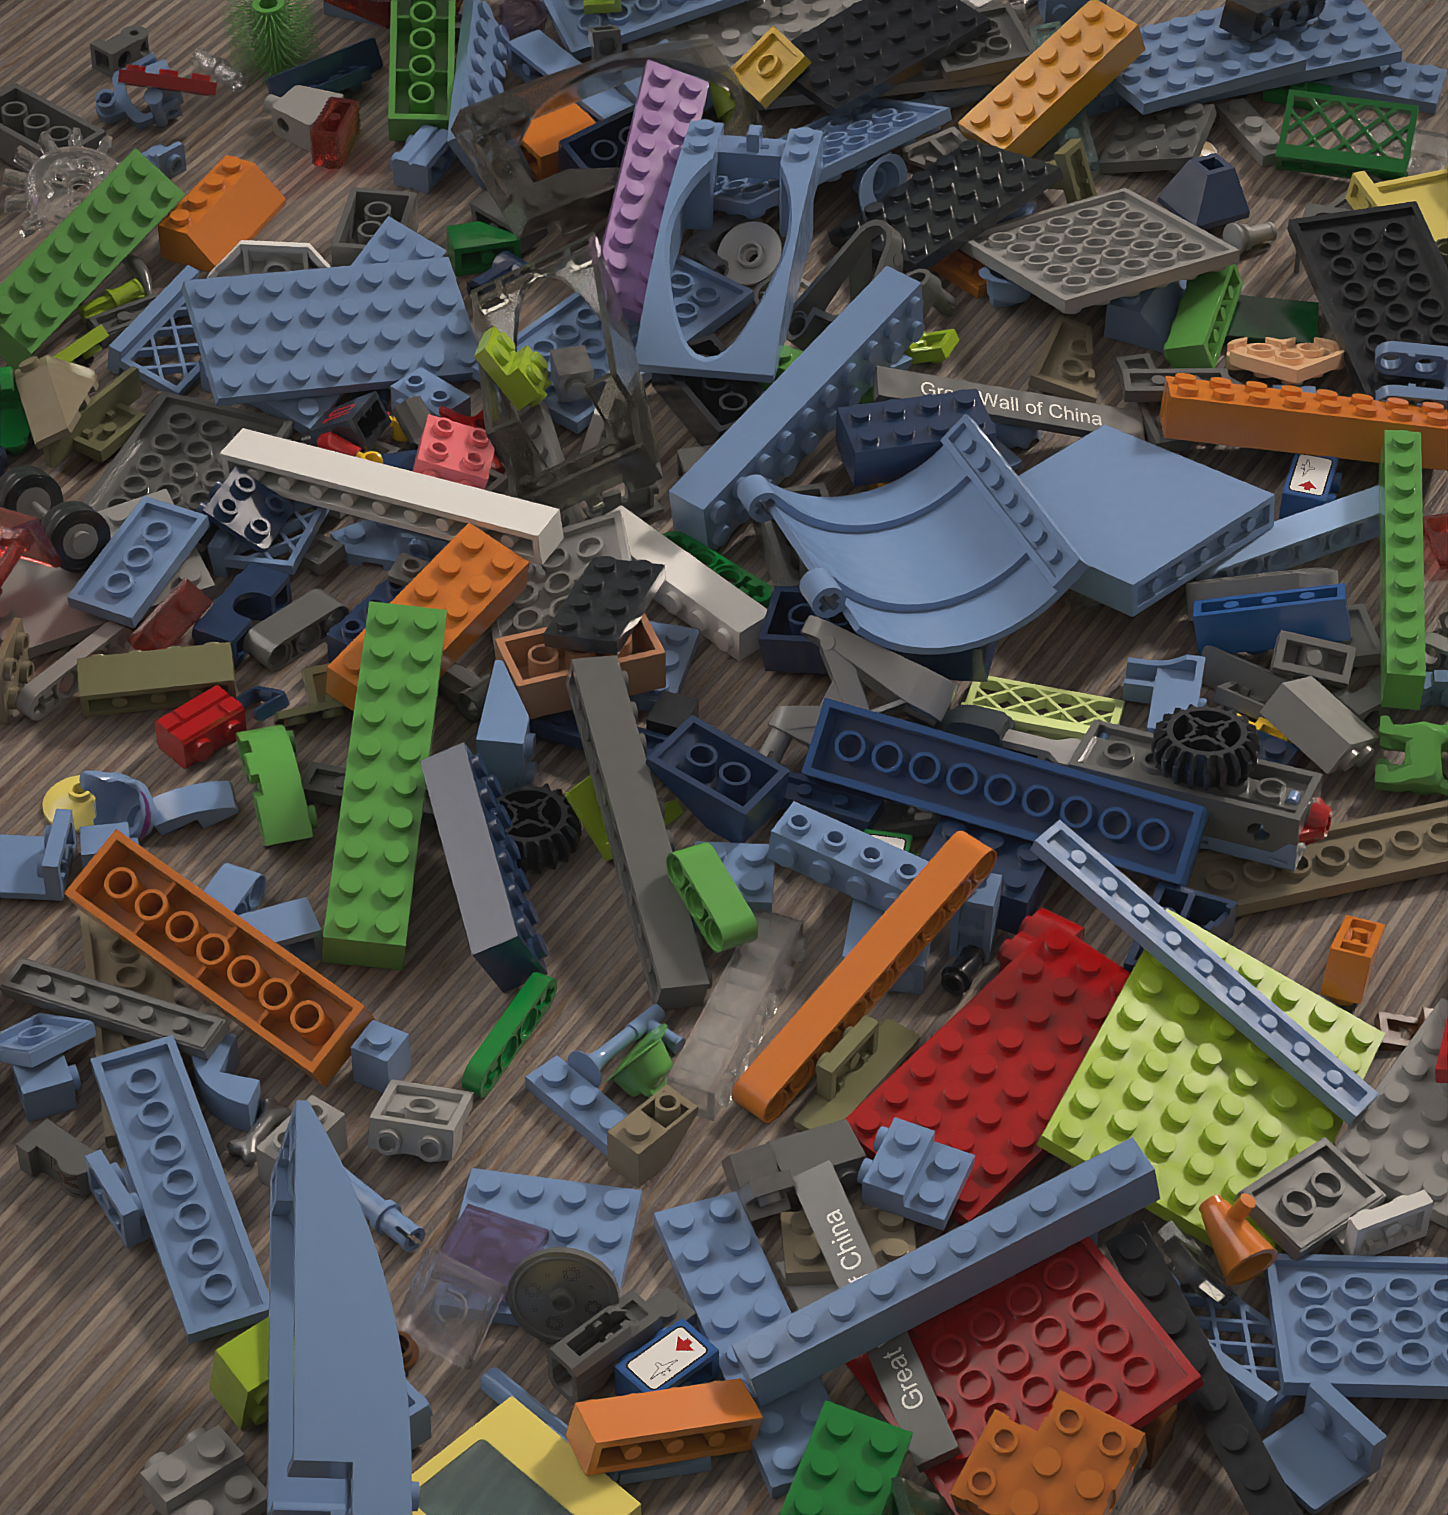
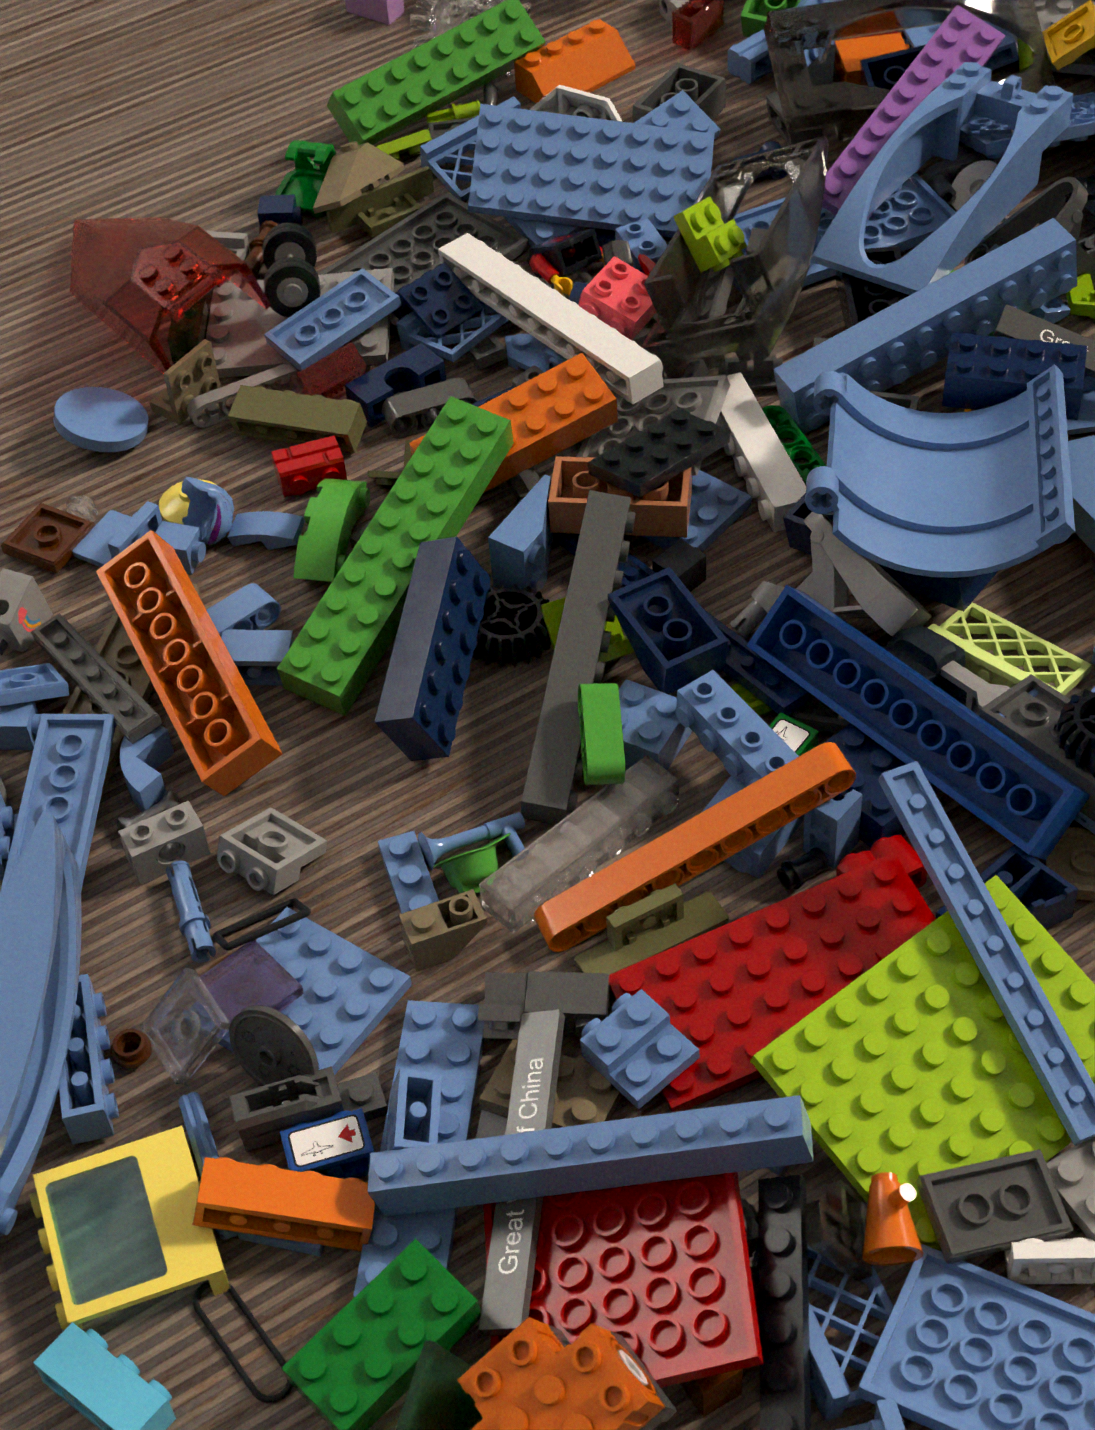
camera: 30 degrees right, 5 degrees up
(168, 159) = (559, 16): medium blue bracket -> none
(274, 700) = (363, 459): dark blue piece -> none
(380, 1055) = (272, 784): medium blue brick -> none
(476, 245) = (755, 129): green slope -> none
(504, 1163) = (304, 911): none -> black piece
(509, 1034) = (353, 818): green beam -> none
(743, 1296) = (413, 1109): none -> medium blue brick

